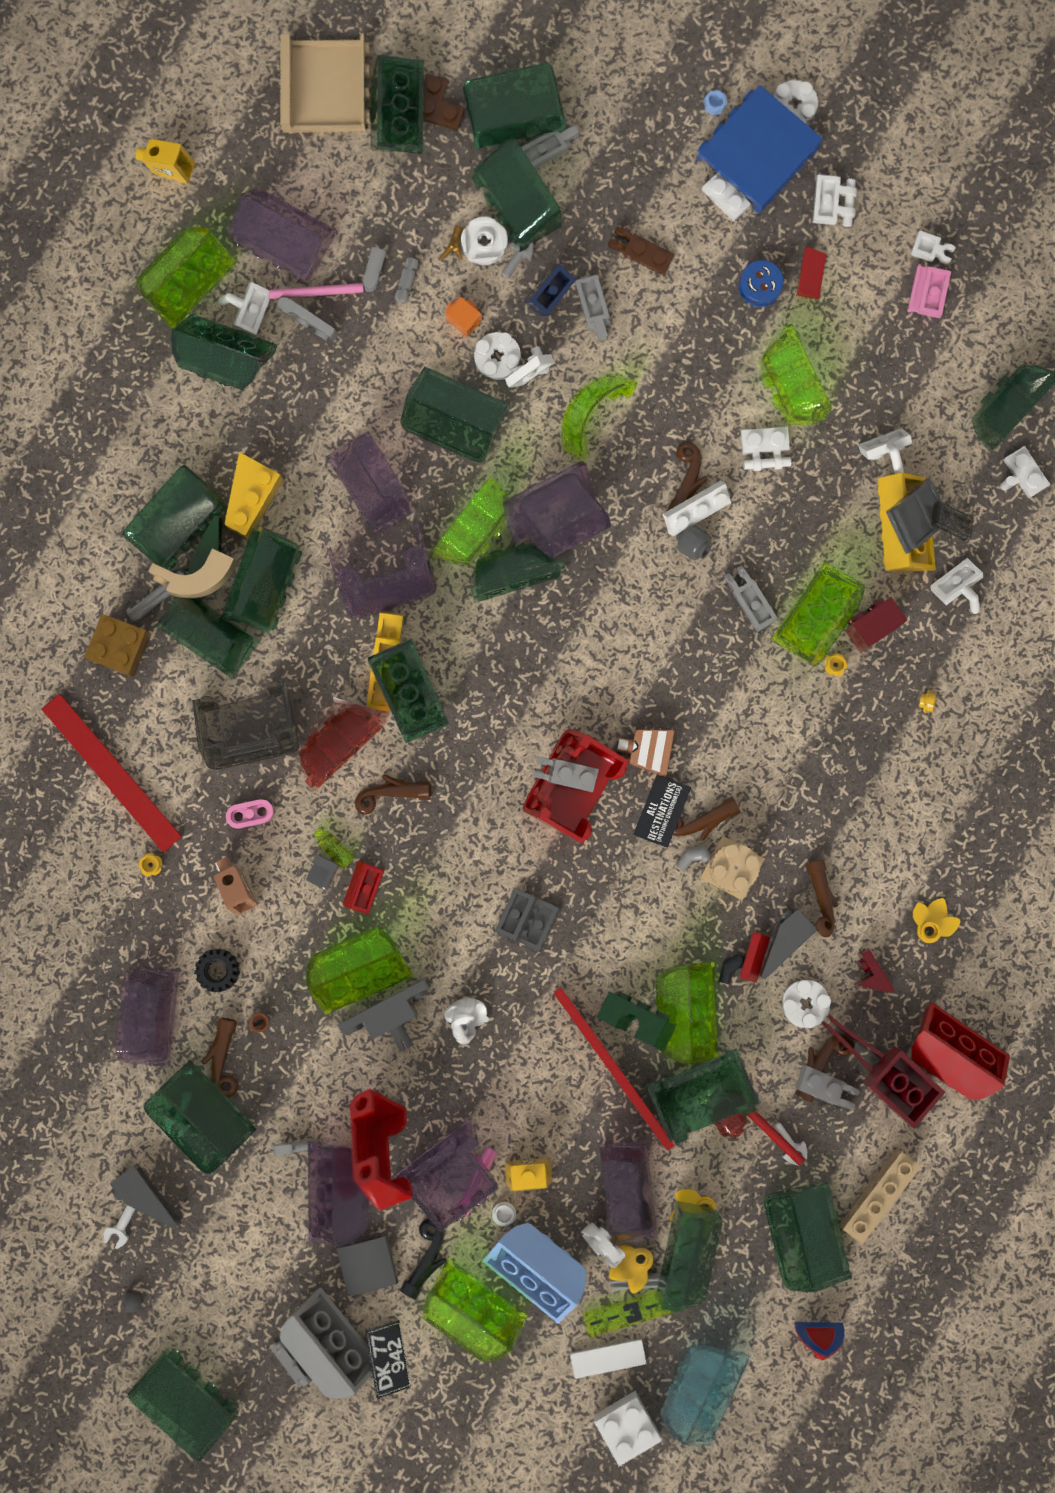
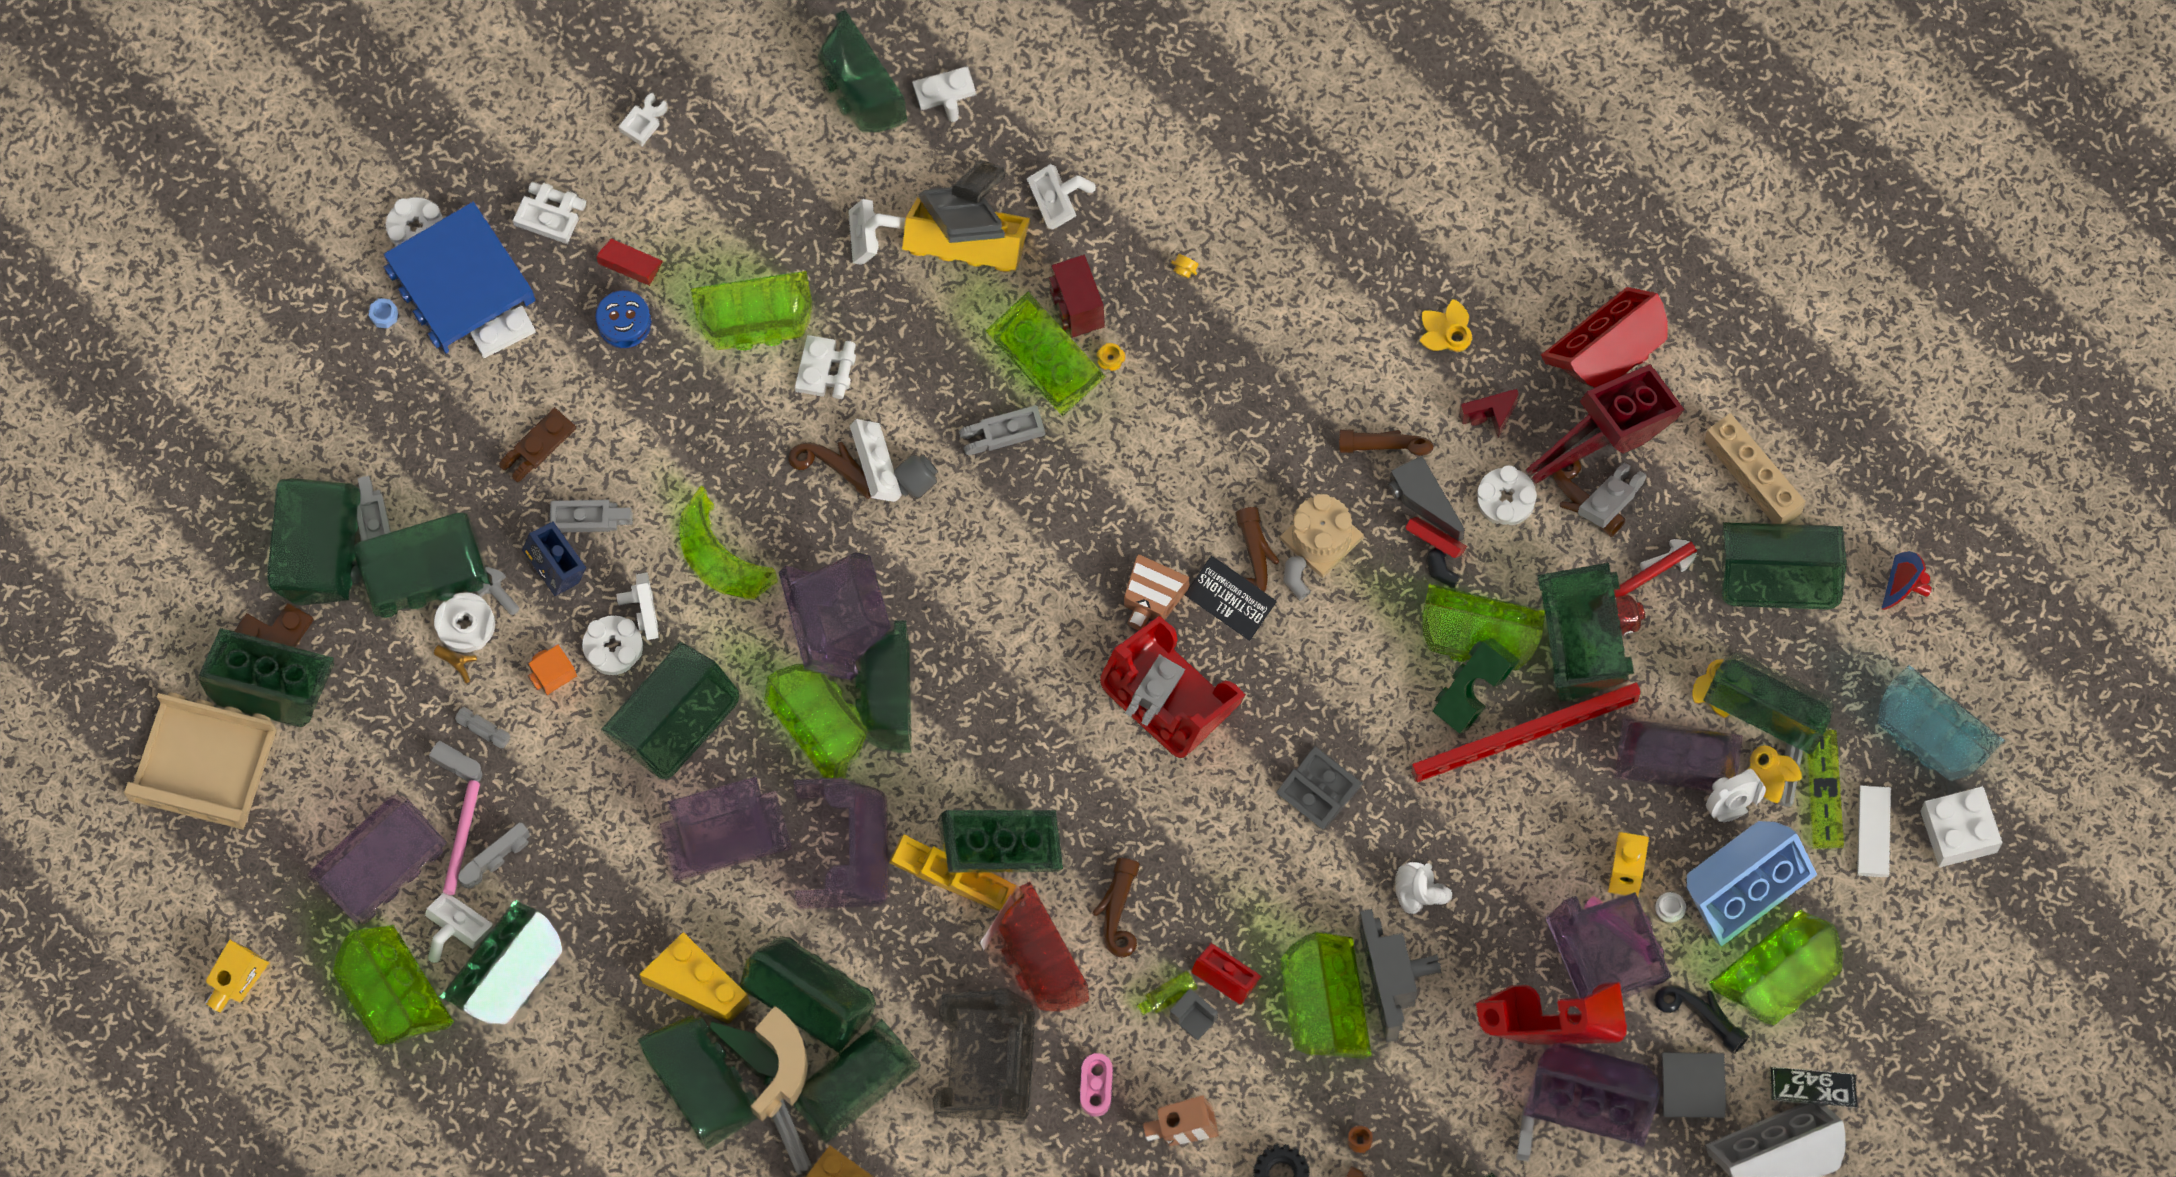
camera: 70 degrees left, 15 degrees down
(929, 291) = (694, 136): bright pink plate -> none

